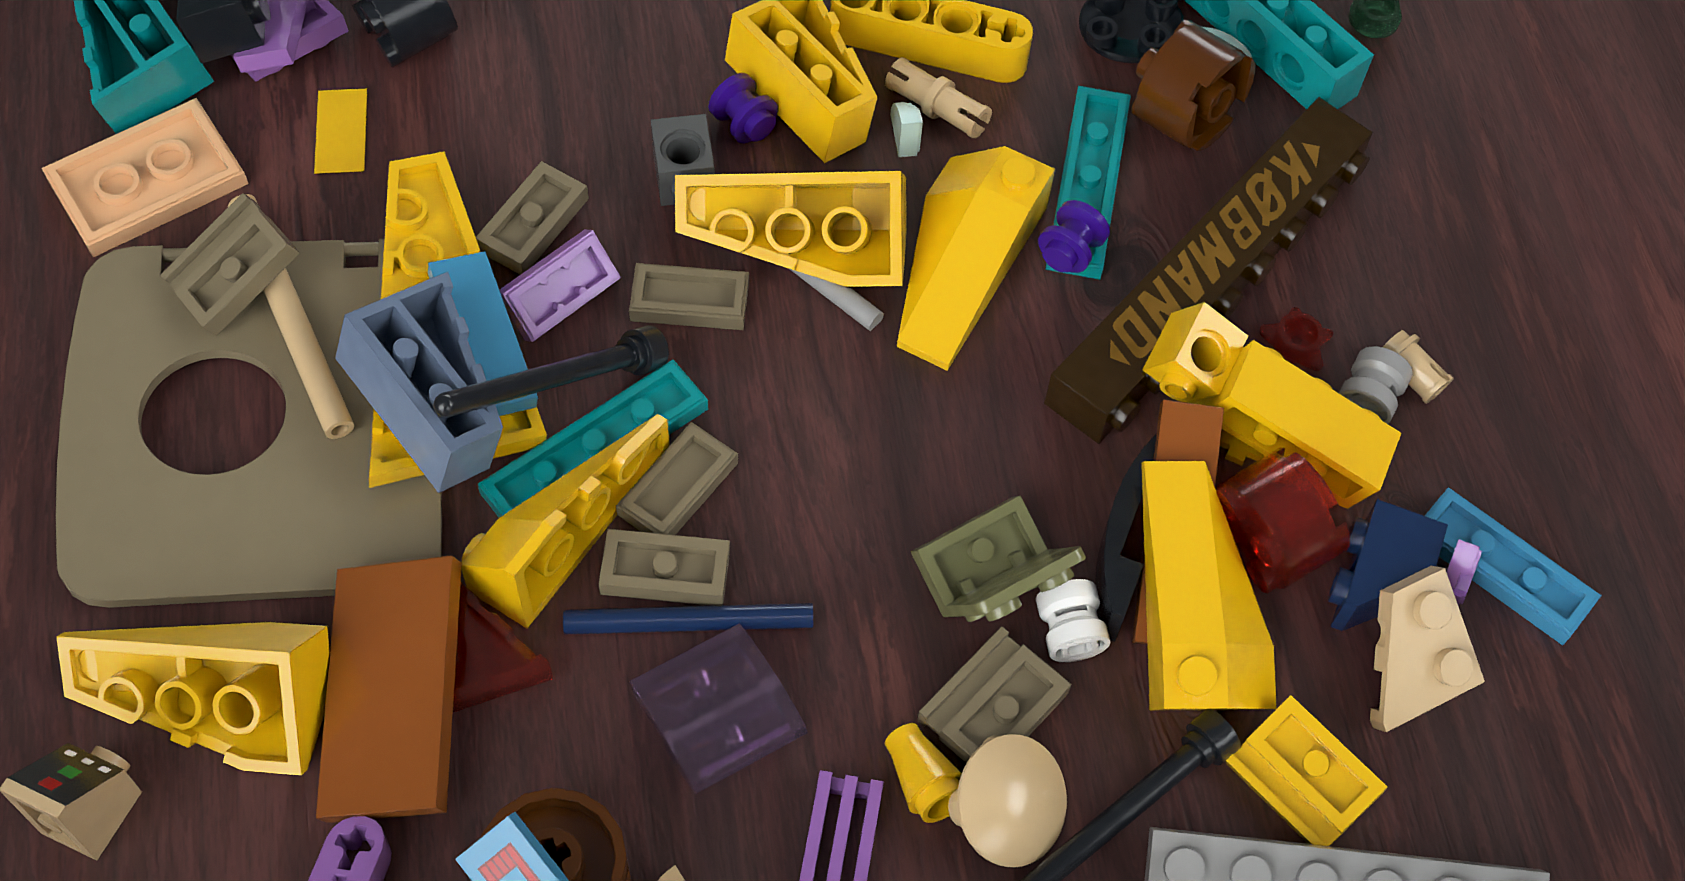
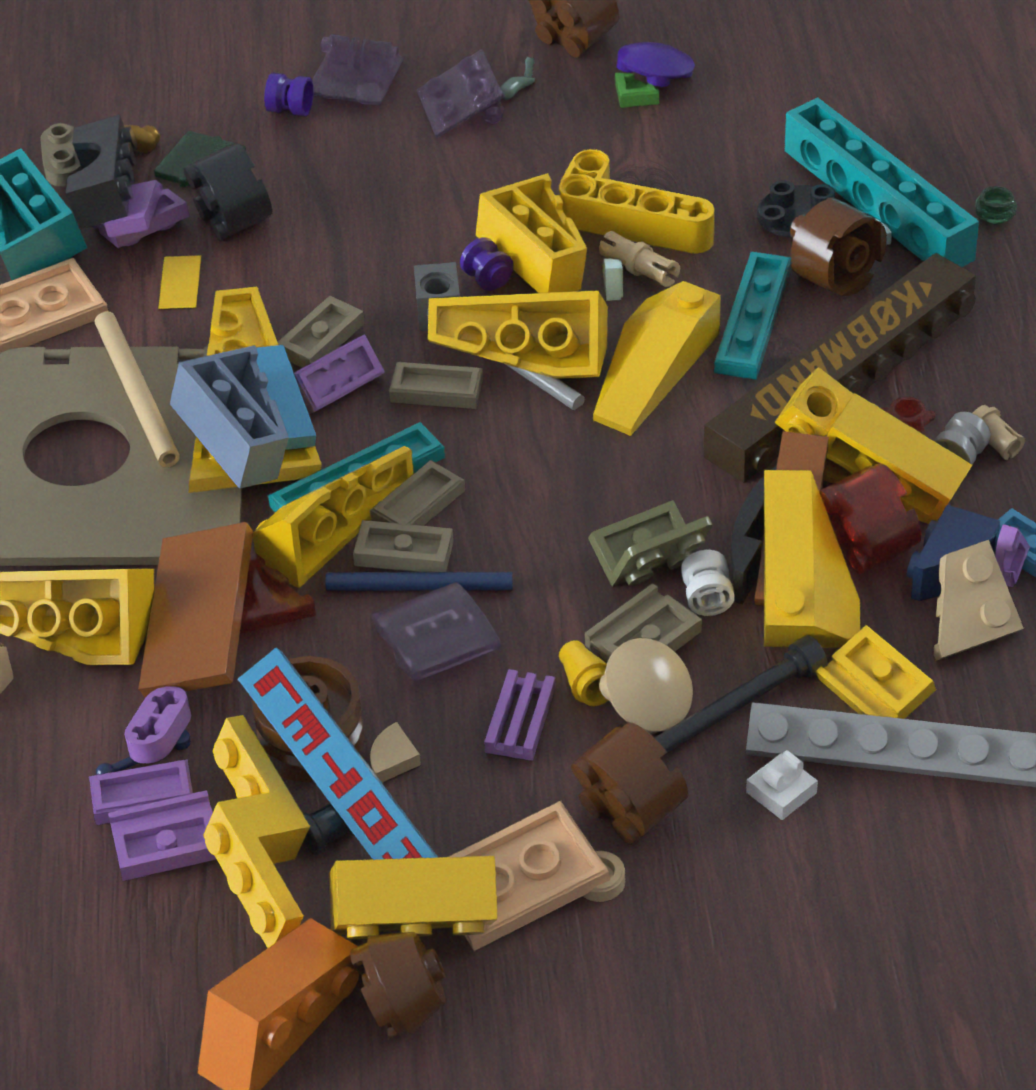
camera: 10 degrees right, 15 degrees down
(230, 264) = (95, 351): dark tan plate -> none
(636, 352) = (392, 414): black piece -> none
(1068, 244) = (729, 344): dark purple wheel -> none

